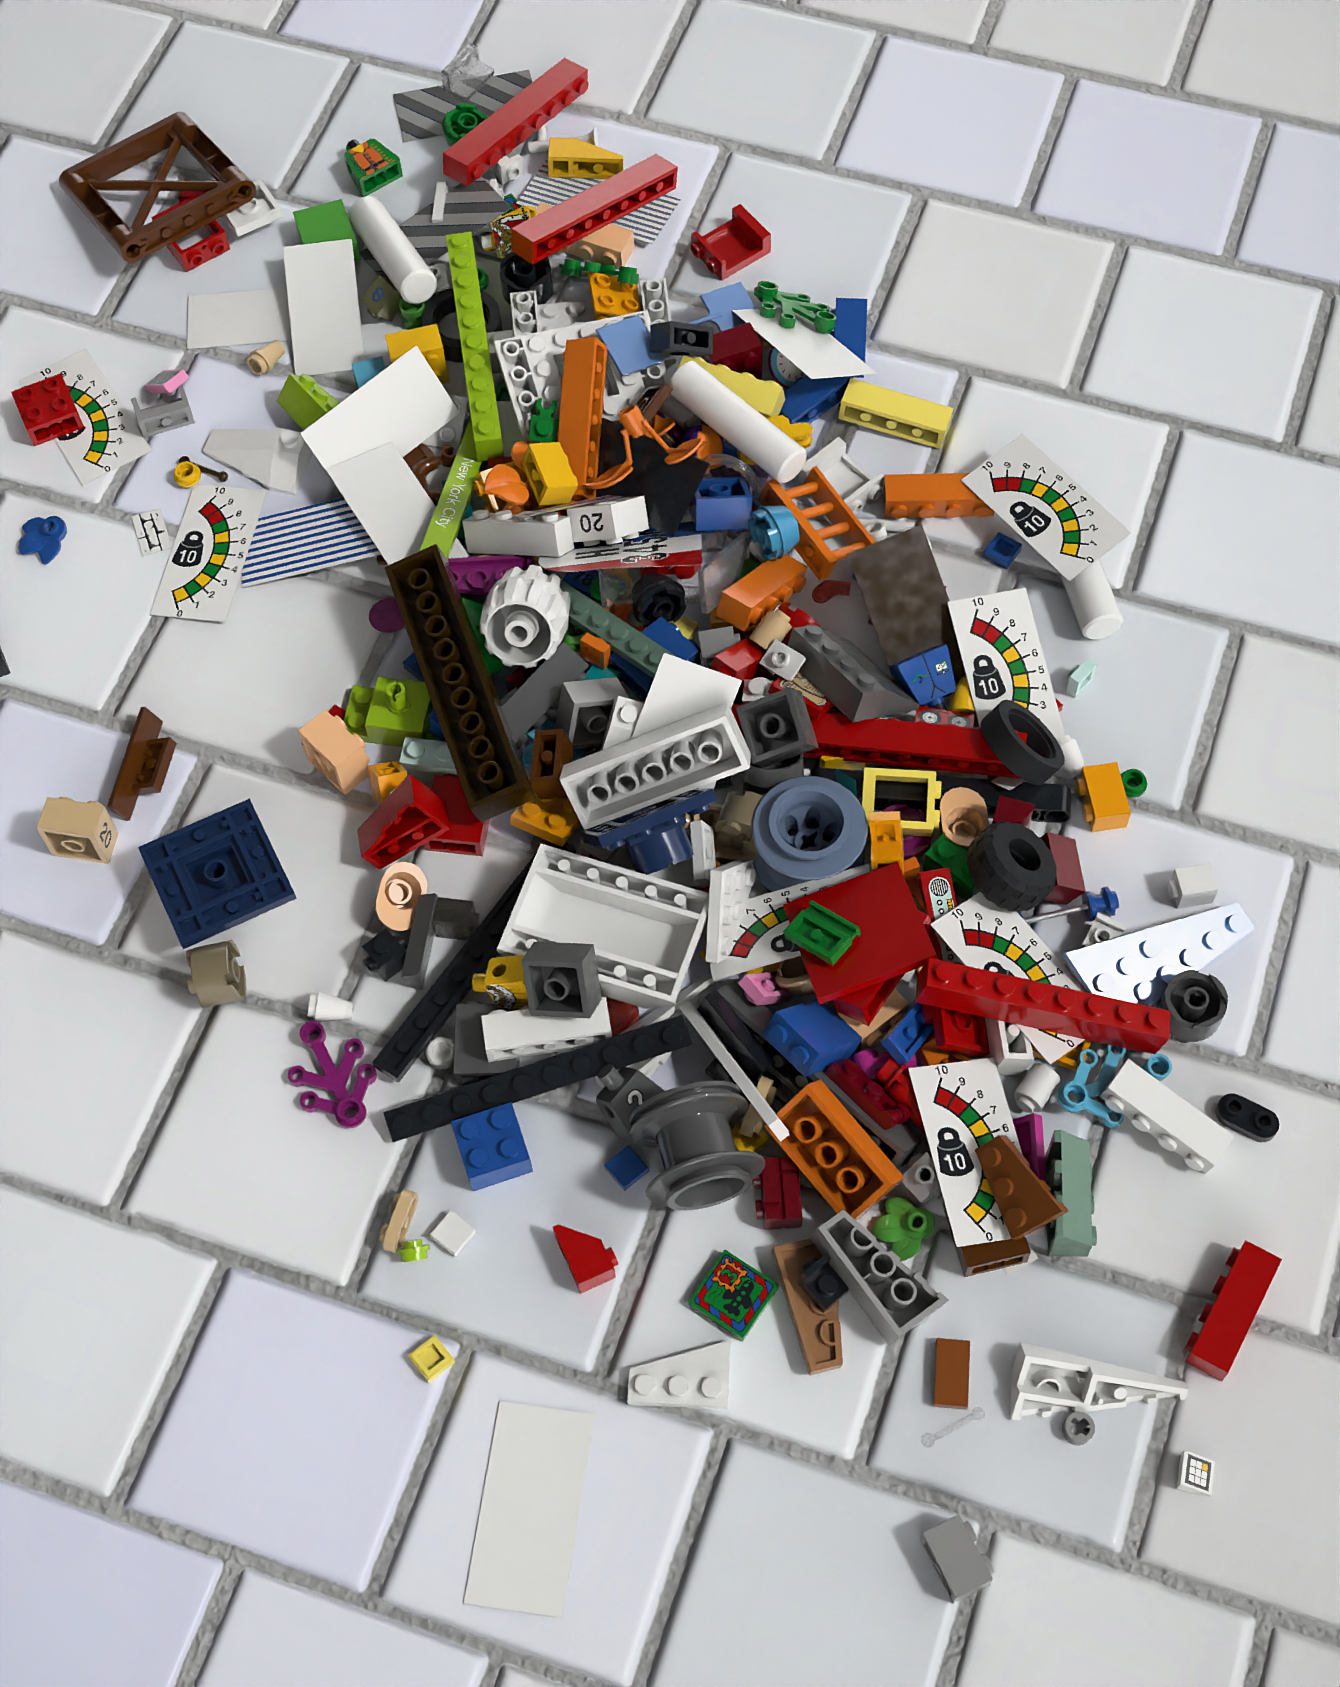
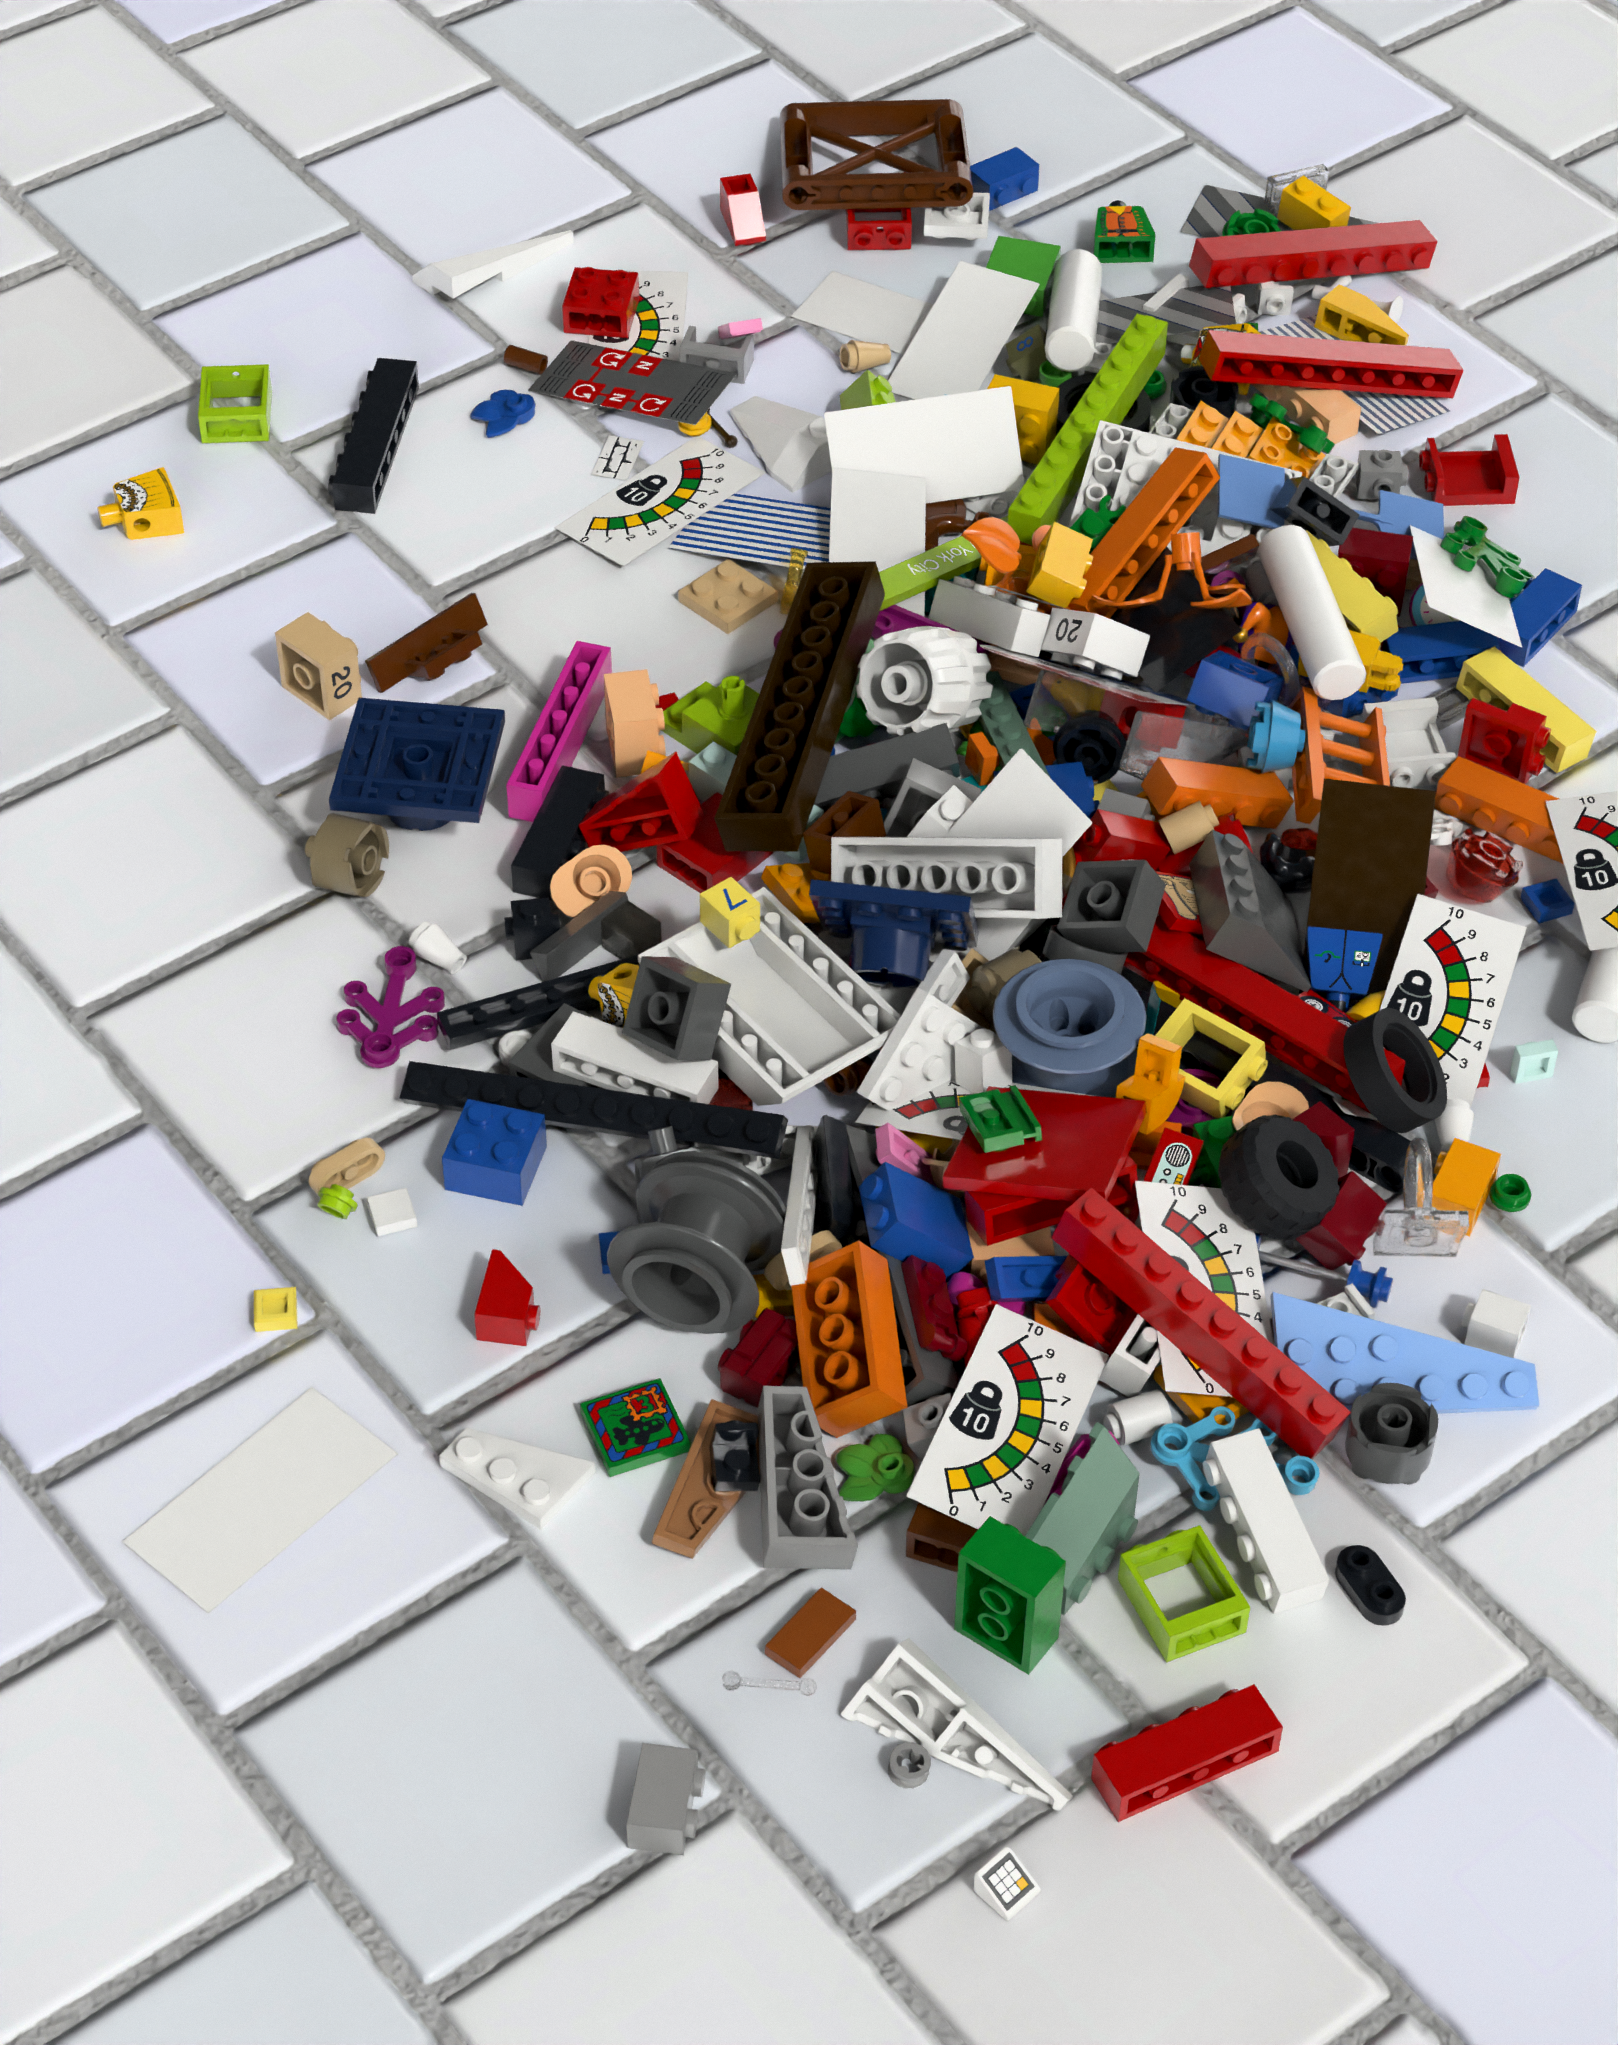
camera: 30 degrees right, 15 degrees down
(26, 485) = (525, 359): none -> reddish brown piece
(93, 279) = (742, 209): none -> slope
(118, 465) = (633, 382): none -> dark grey sticker
(258, 156) = (1005, 177): none -> blue brick
(288, 786) = (559, 728): none -> dark pink brick
(315, 606) = (728, 596): none -> tan plate
(345, 866) = (556, 830): none -> black brick
(362, 583) = (793, 579): none -> clear yellow bar
(488, 84) = (1311, 207): none -> yellow brick
(540, 881) = (730, 912): none -> light yellow brick
(562, 305) = (1215, 431): none -> light orange plate
(680, 276) = (1379, 472): none -> light grey brick
(765, 888) = (982, 1061): none -> white brick
(782, 660) = (1176, 856): white bracket -> none
(841, 615) = (1287, 866): none -> black hair
(904, 448) = (1504, 739): none -> red plate
(956, 550) = (1482, 866): none -> clear red cone
(1017, 1190) = (1018, 1471): dark orange wing -> none
(1070, 1276) = (1009, 1594): none -> green brick
(1110, 843) = (1419, 1226): none -> clear tile
(1162, 1174) = (1198, 1628): none -> lime window

